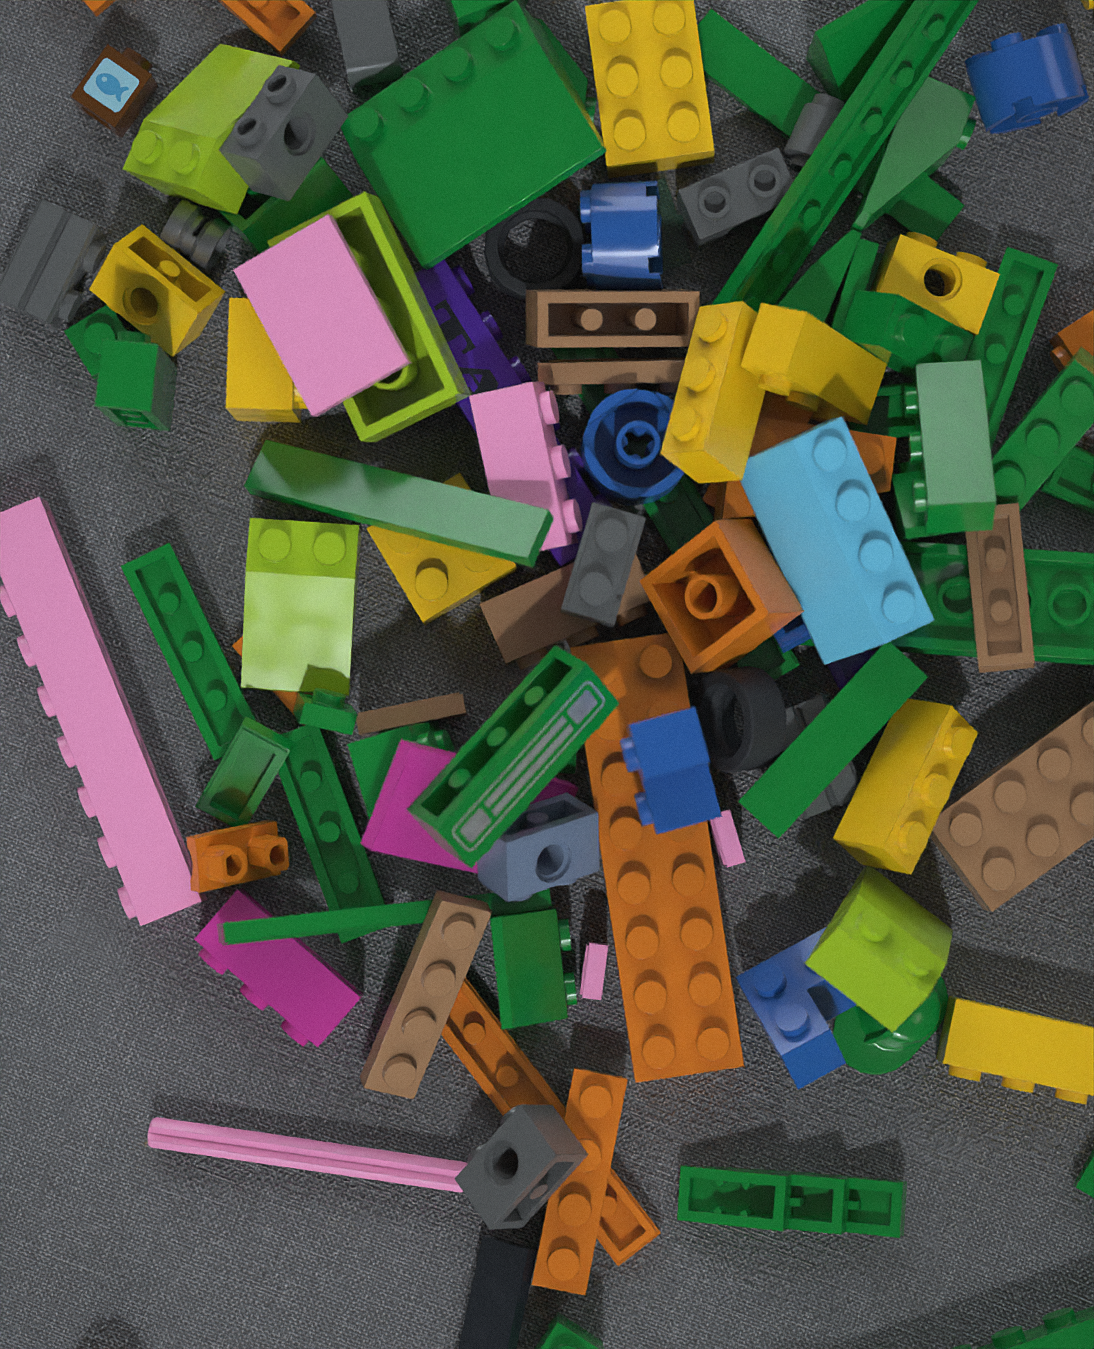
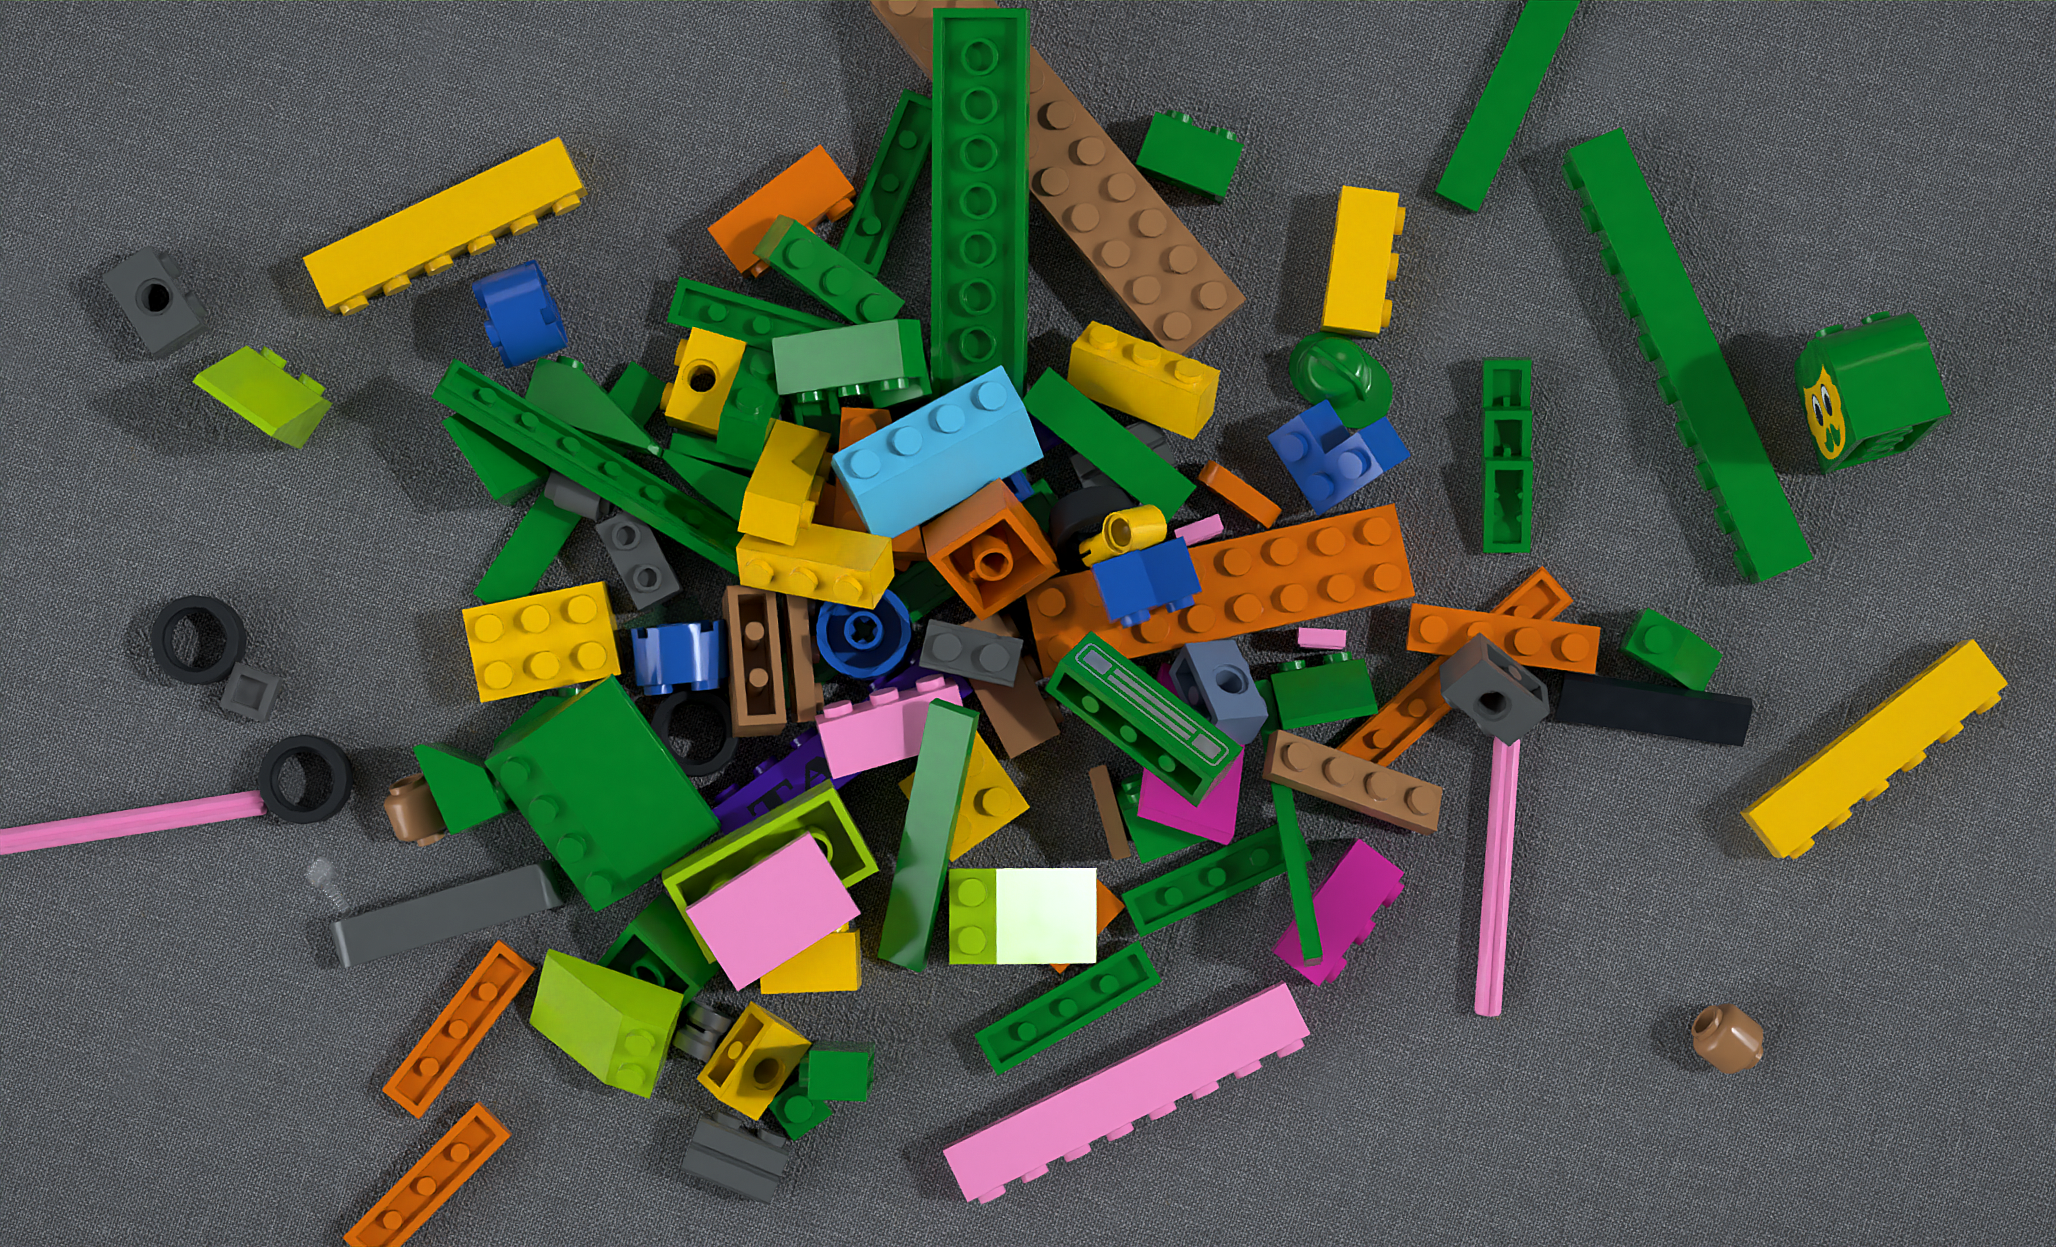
camera: 85 degrees left, 0 degrees up
(116, 89) = (577, 1110): reddish brown brick -> none
(237, 855) = (1243, 954): orange hips -> none
(244, 773) = (1172, 954): green tile -> none
(283, 132) = (611, 957): dark grey brick -> none
(325, 710) = (1112, 886): green plate -> none
(730, 751) = (1125, 532): none -> yellow pin
(766, 888) = (1238, 494): none -> orange beam
(882, 949) = (1285, 390): lime slope -> none
(1000, 594) = (973, 309): medium nougat plate -> none

